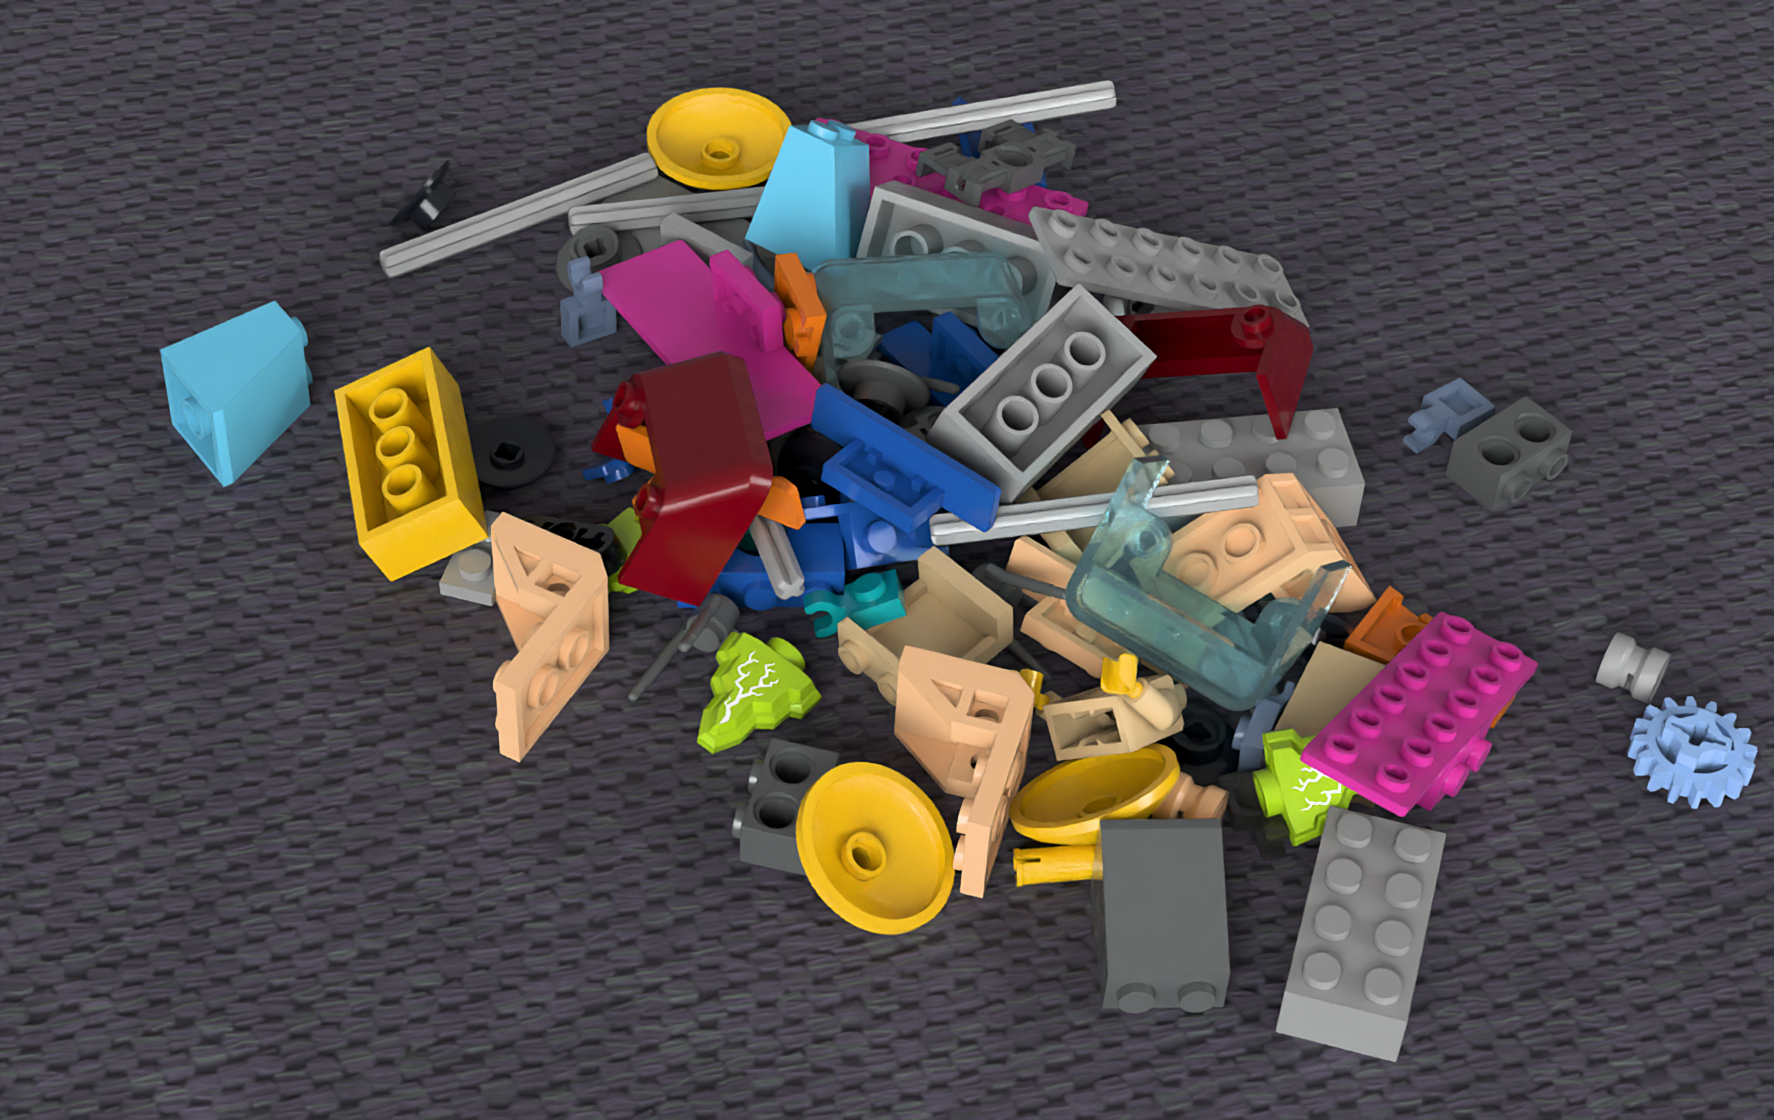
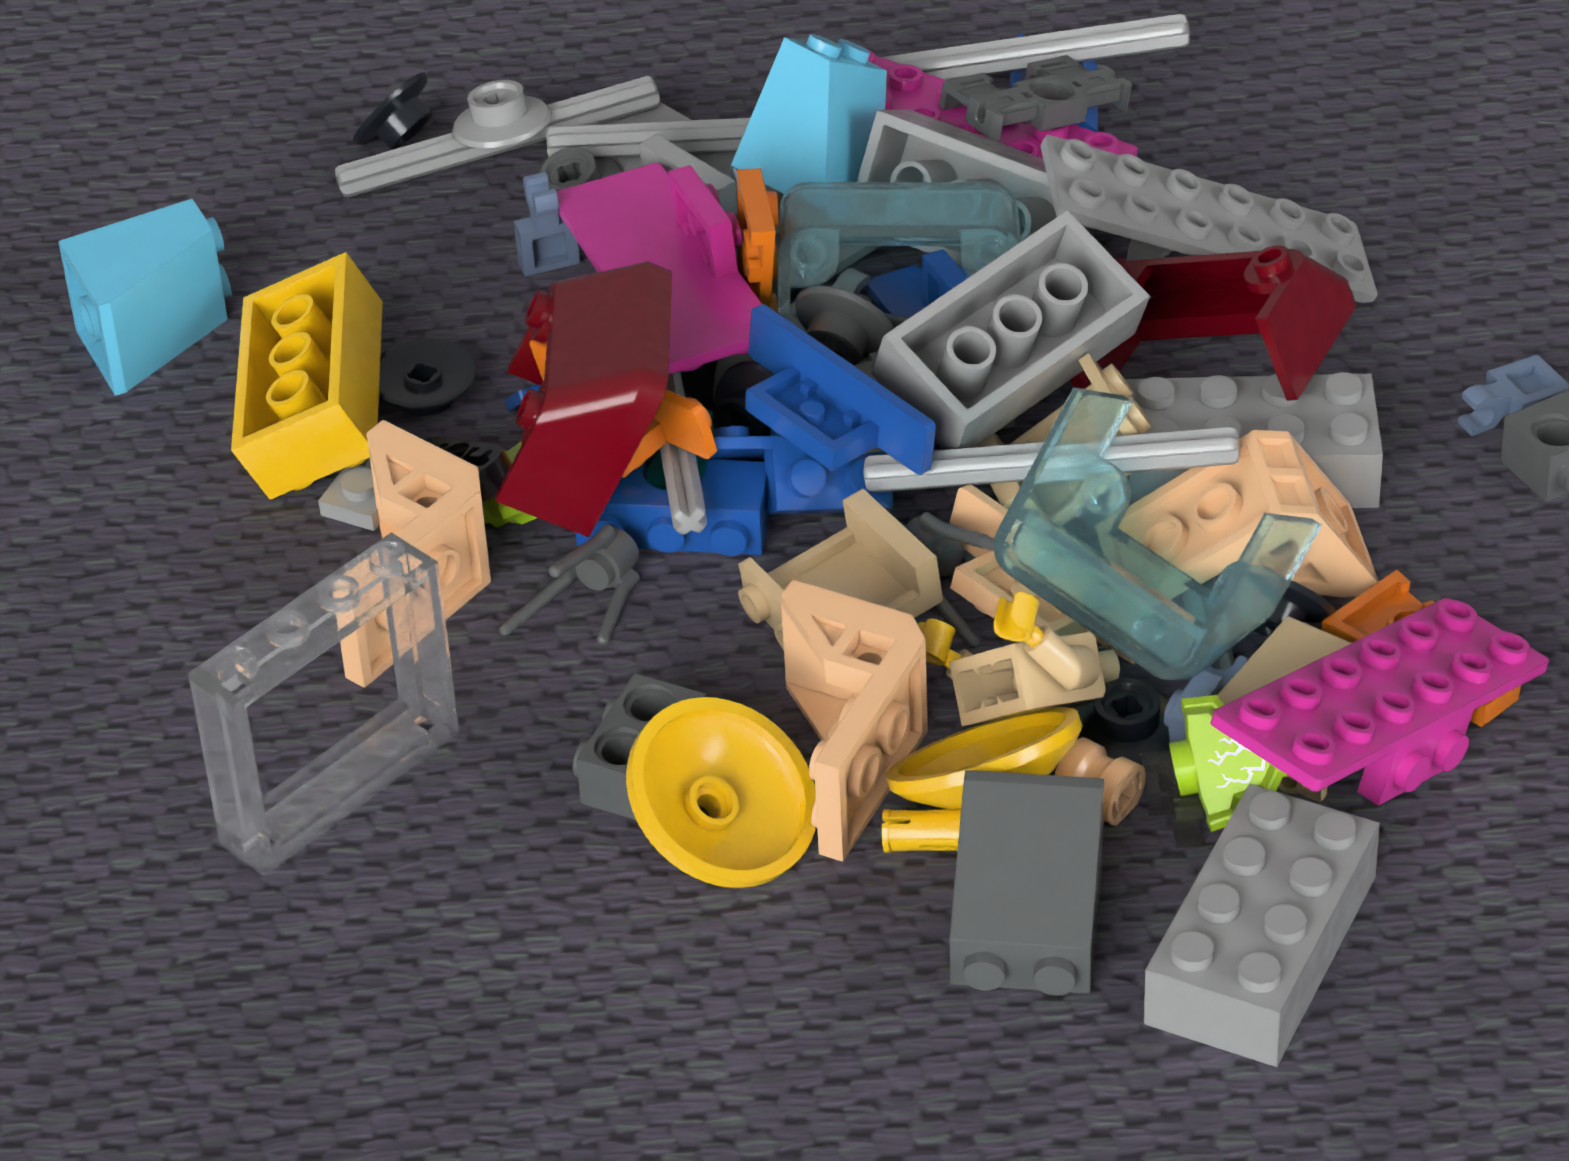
camera: 15 degrees right, 5 degrees down
(523, 199) = (500, 116): none -> light grey piece
(564, 696) = (368, 759): none -> clear window
(717, 138) = (720, 63): yellow dish -> none
(754, 690) = (634, 628): lime rock -> none
(867, 602) = (780, 548): teal plate -> none

